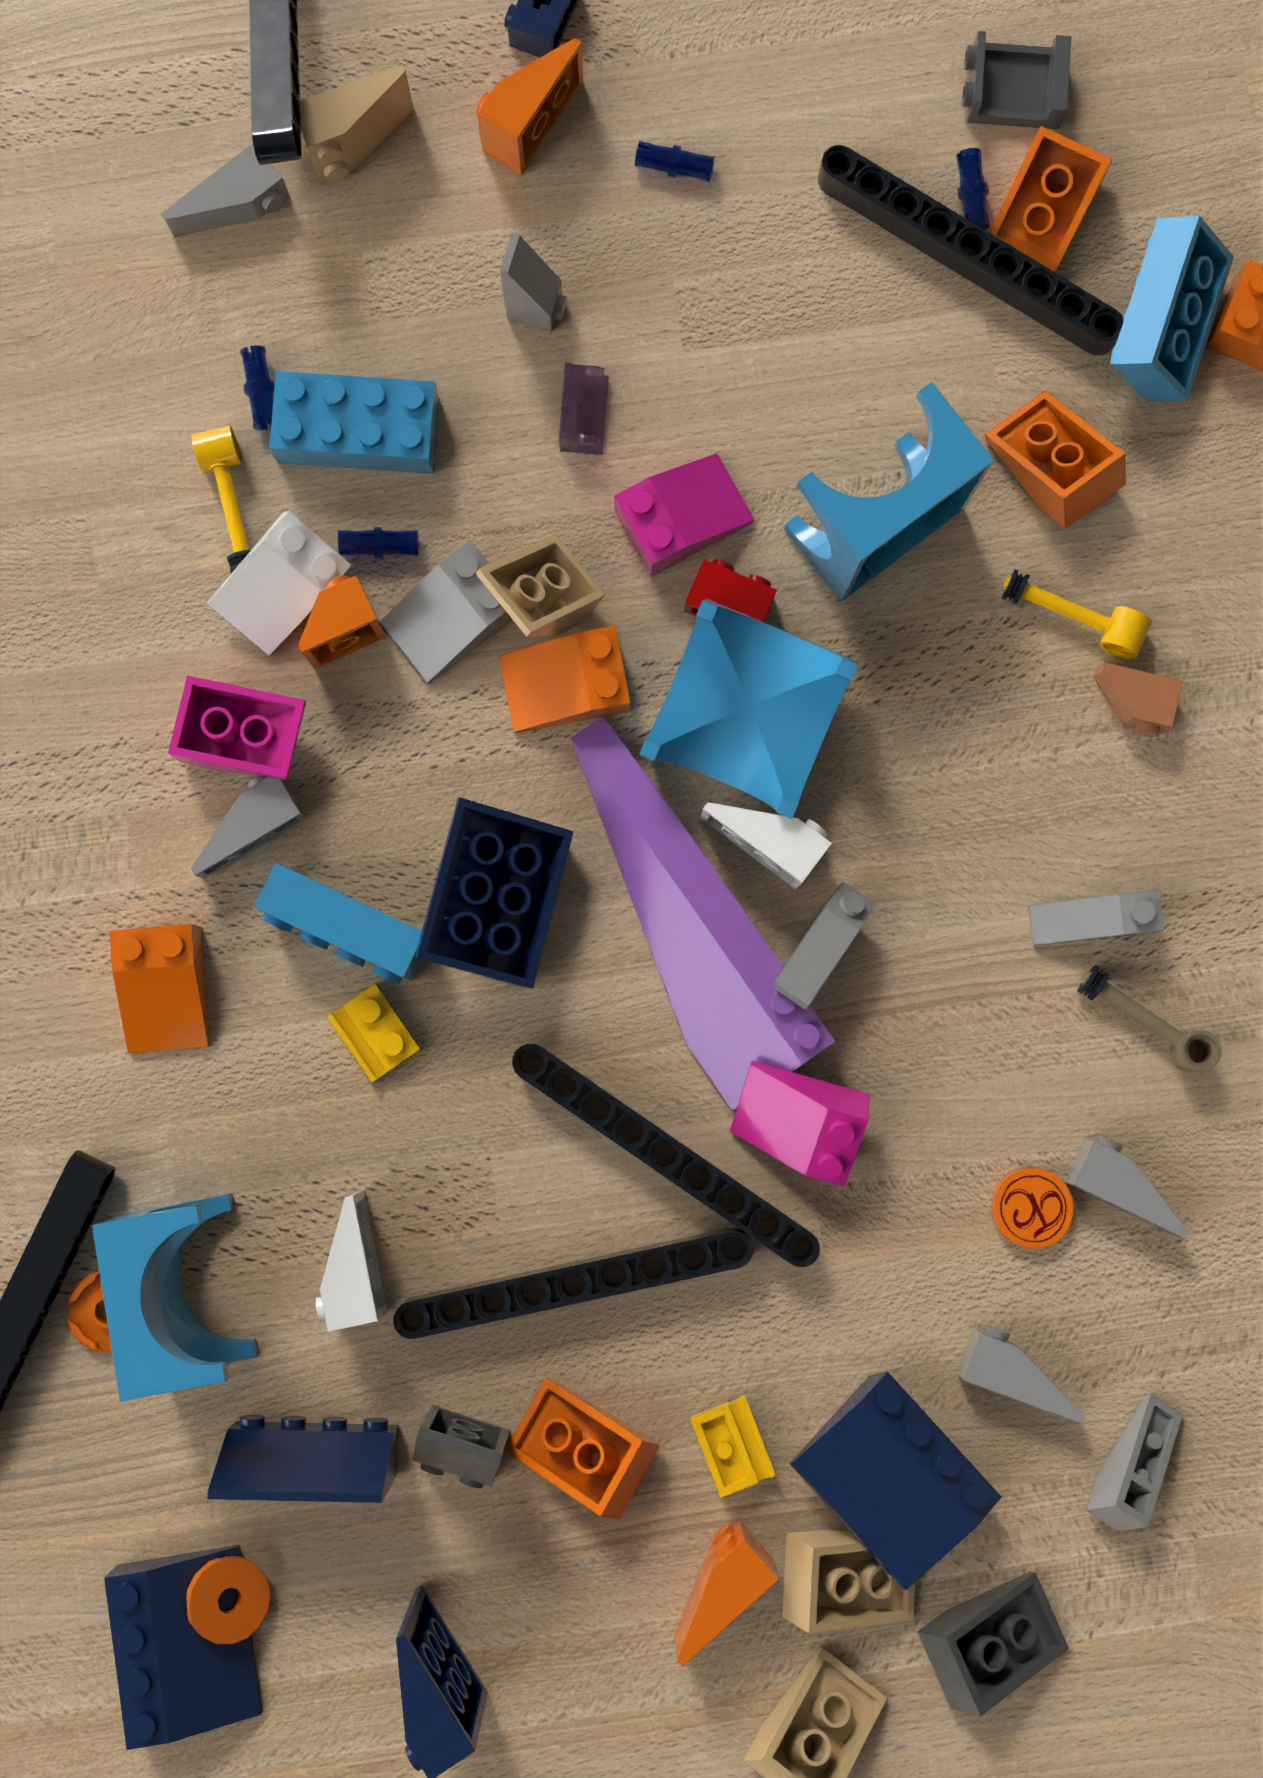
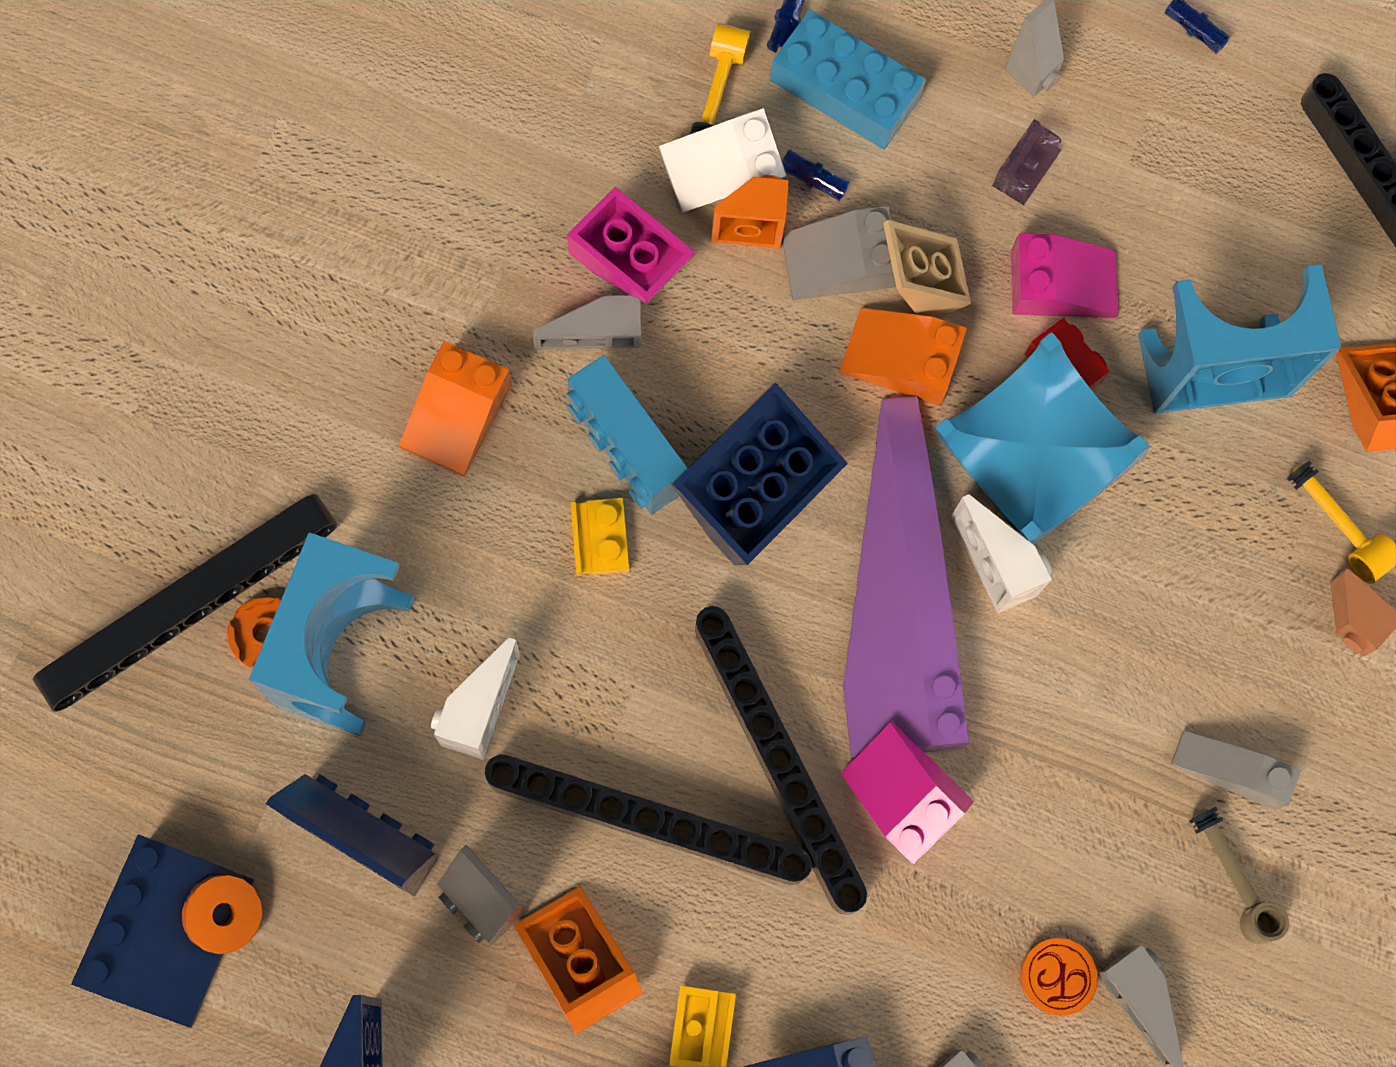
camera: 25 degrees right, 10 degrees down
(823, 945) = (1001, 661): light grey slope -> none

